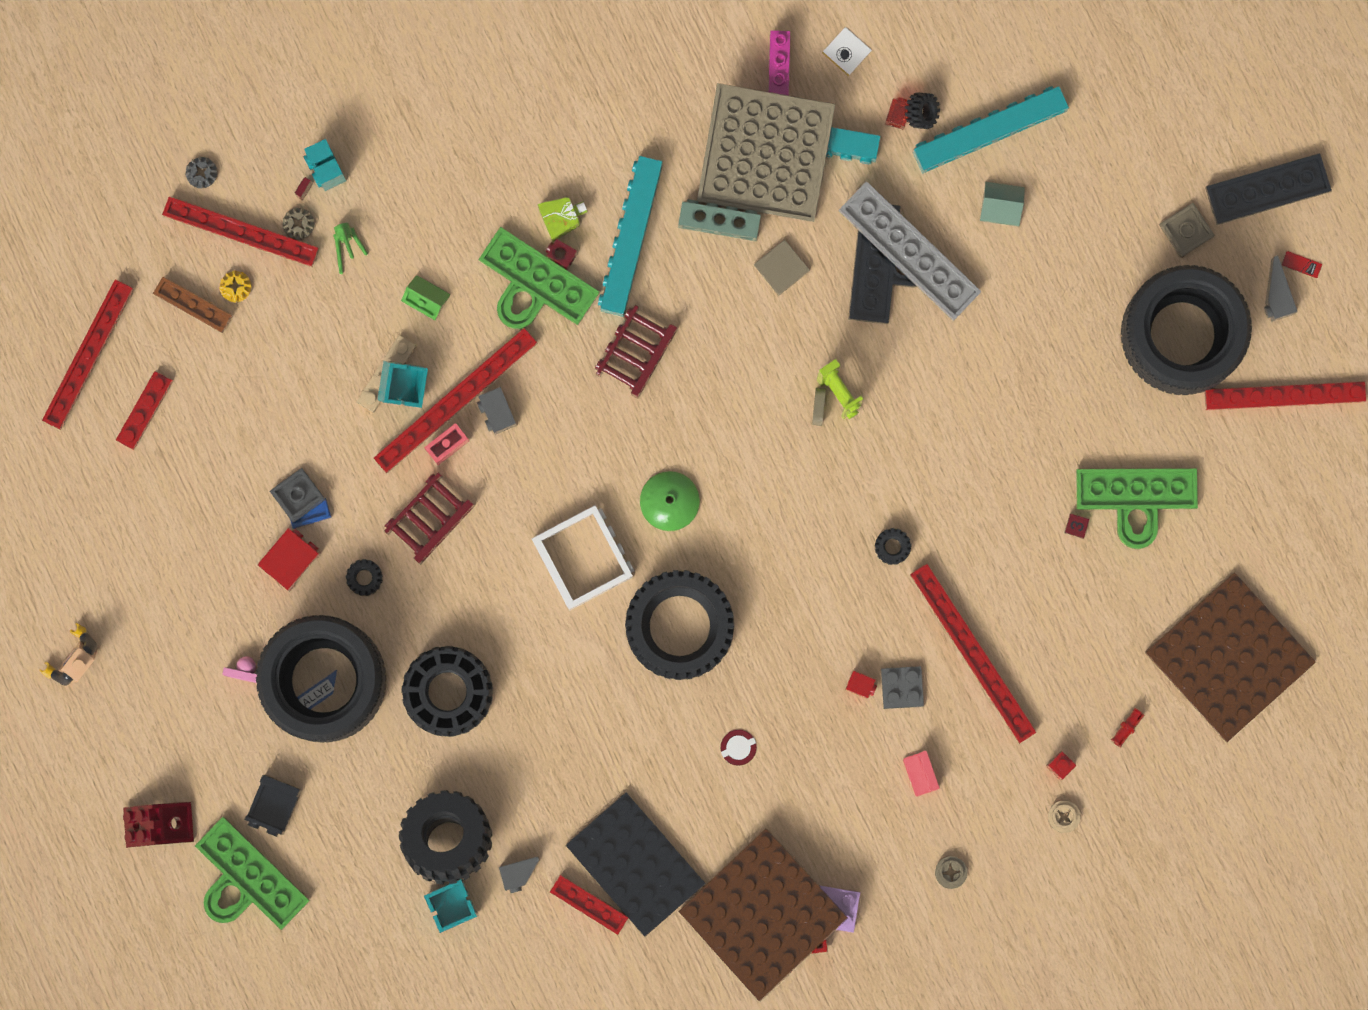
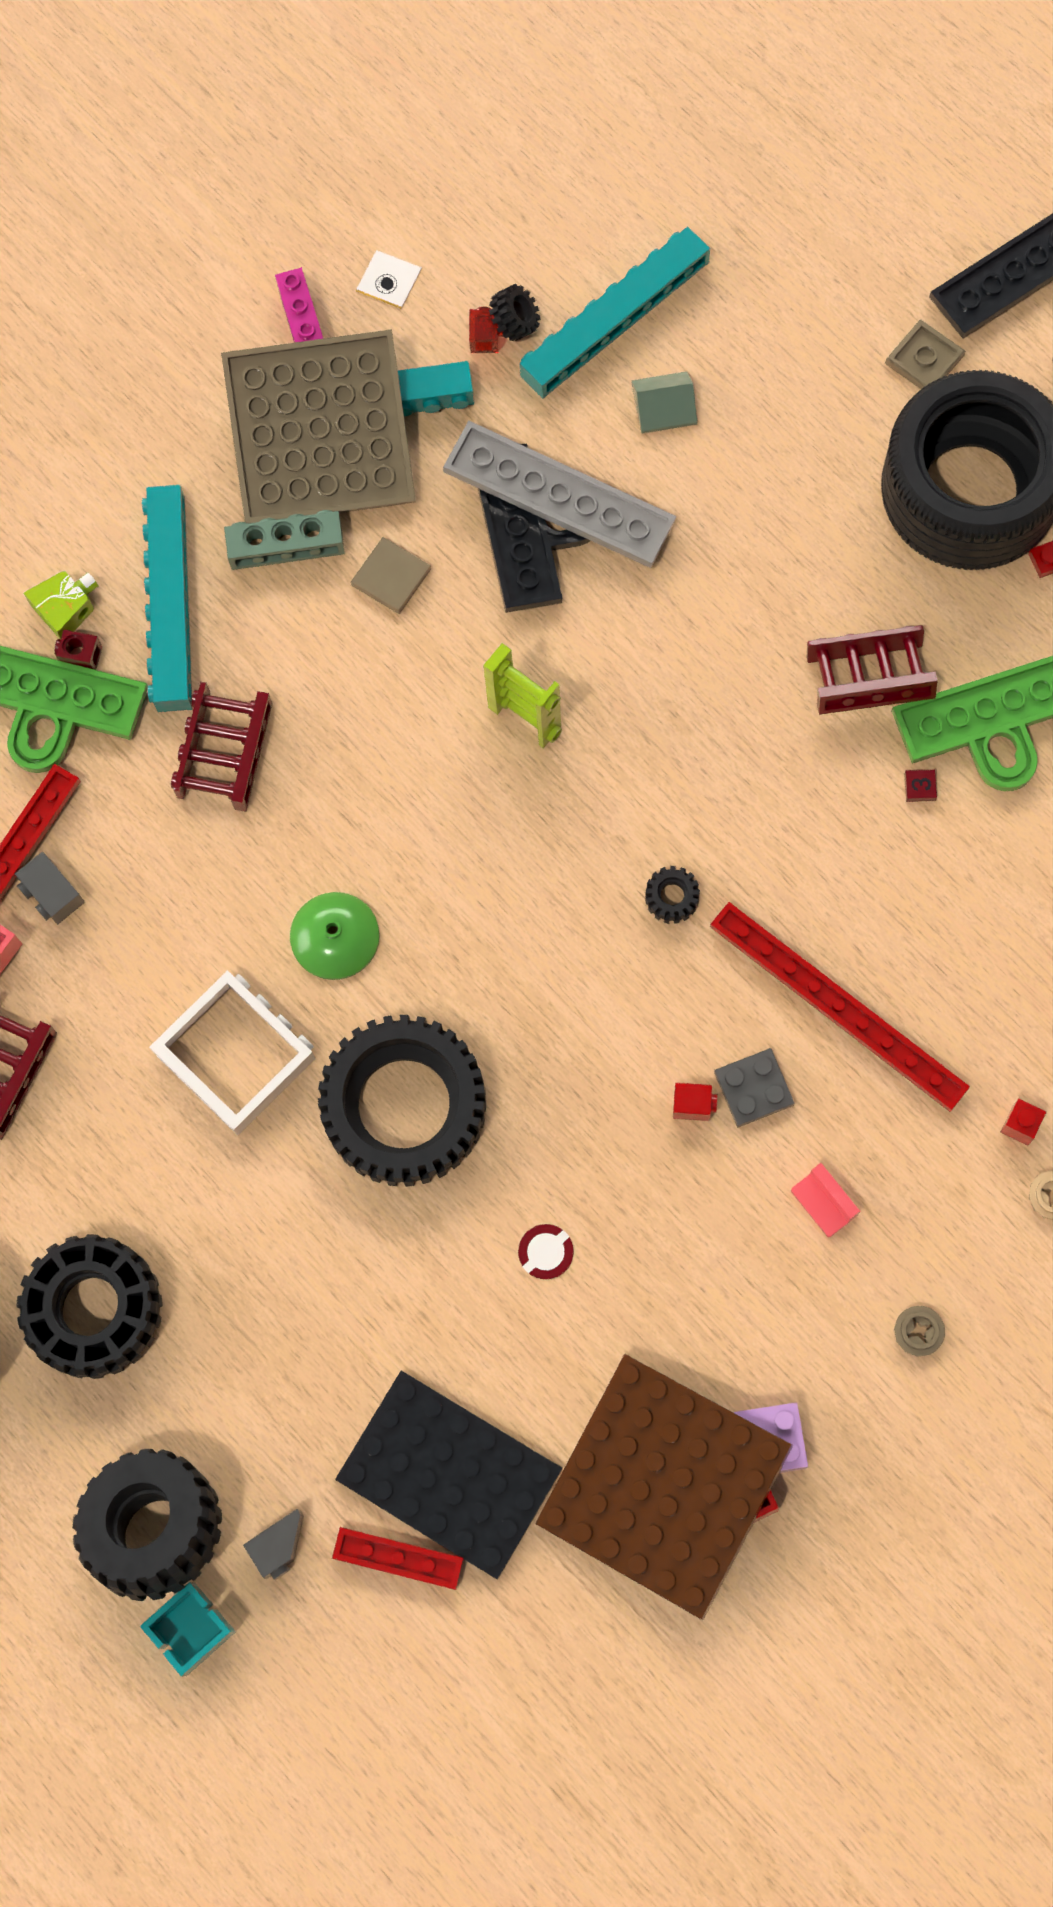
camera: 15 degrees left, 10 degrees down
(818, 406) = (503, 739): dark tan beam -> none
(1059, 454) = (871, 693): none -> dark red fence

